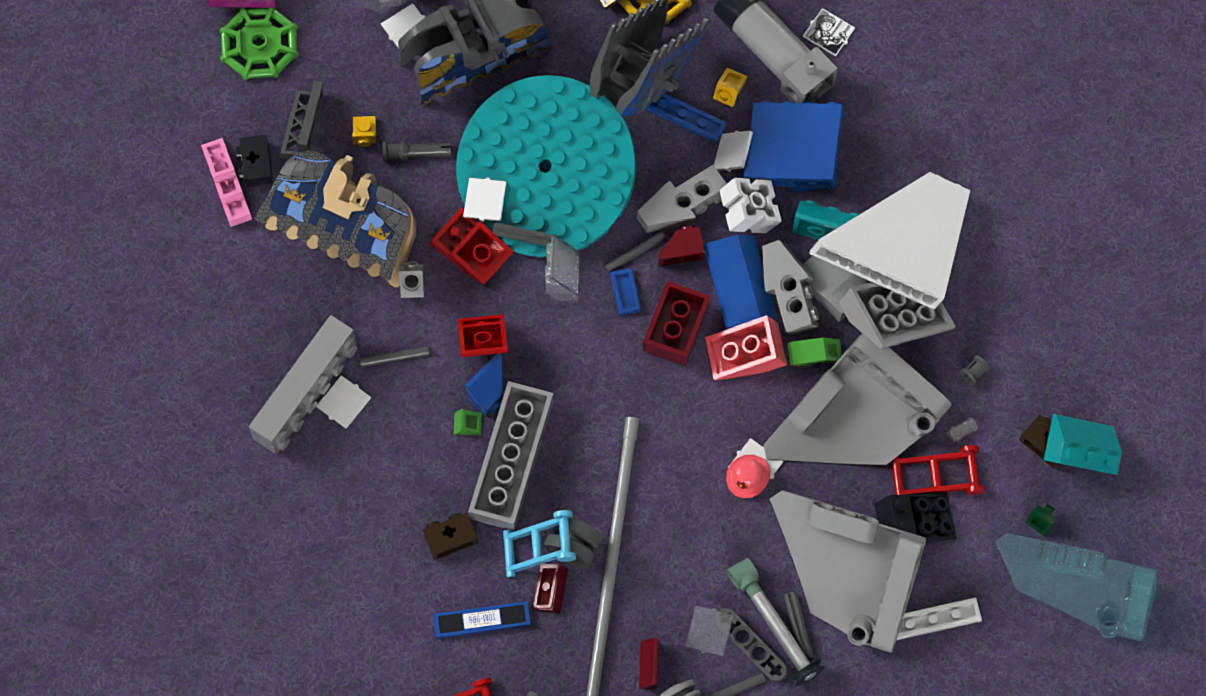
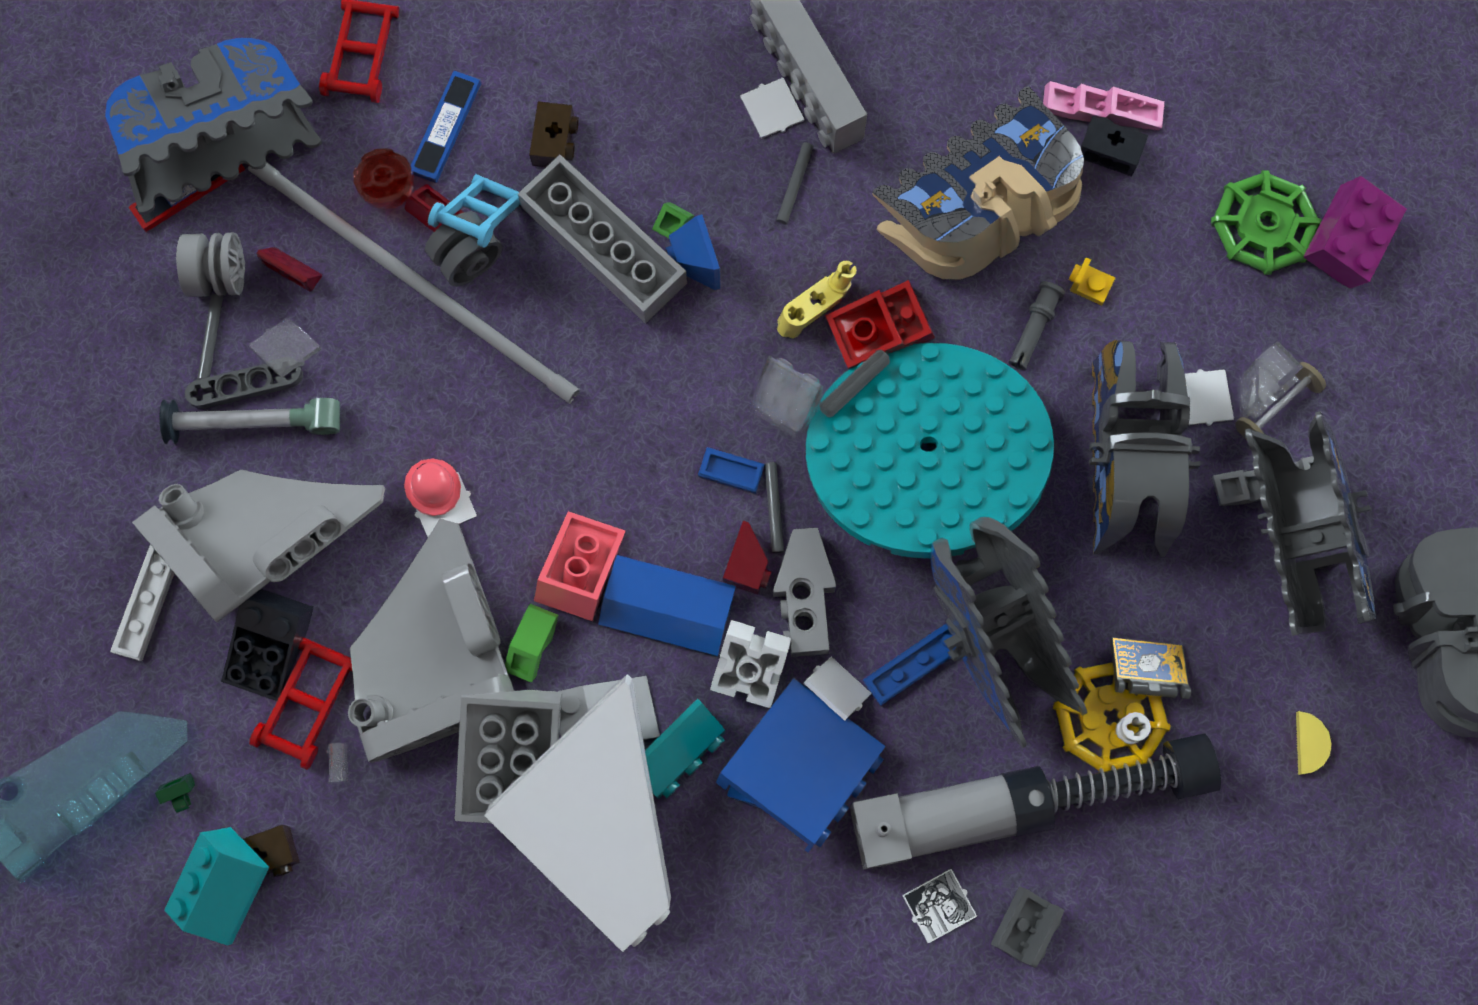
camera: 120 degrees right, 5 degrees up
(307, 125) = (1127, 215): dark grey fence -> none
(407, 288) = (871, 237): light grey brick -> none
(463, 291) = (829, 291): none -> light yellow beam
(482, 335) = (753, 269): red slope -> none
(485, 199) = (925, 360): white piece -> none
(551, 626) = (384, 178): none -> clear red cylinder
(676, 323) = (654, 499): dark red brick -> none
(729, 87) = (927, 735): yellow bracket -> none
(780, 269) = (651, 660): light grey brick -> none
(798, 624) = (233, 446): dark grey axle -> none
(974, 370) = (399, 821): dark grey bush -> none

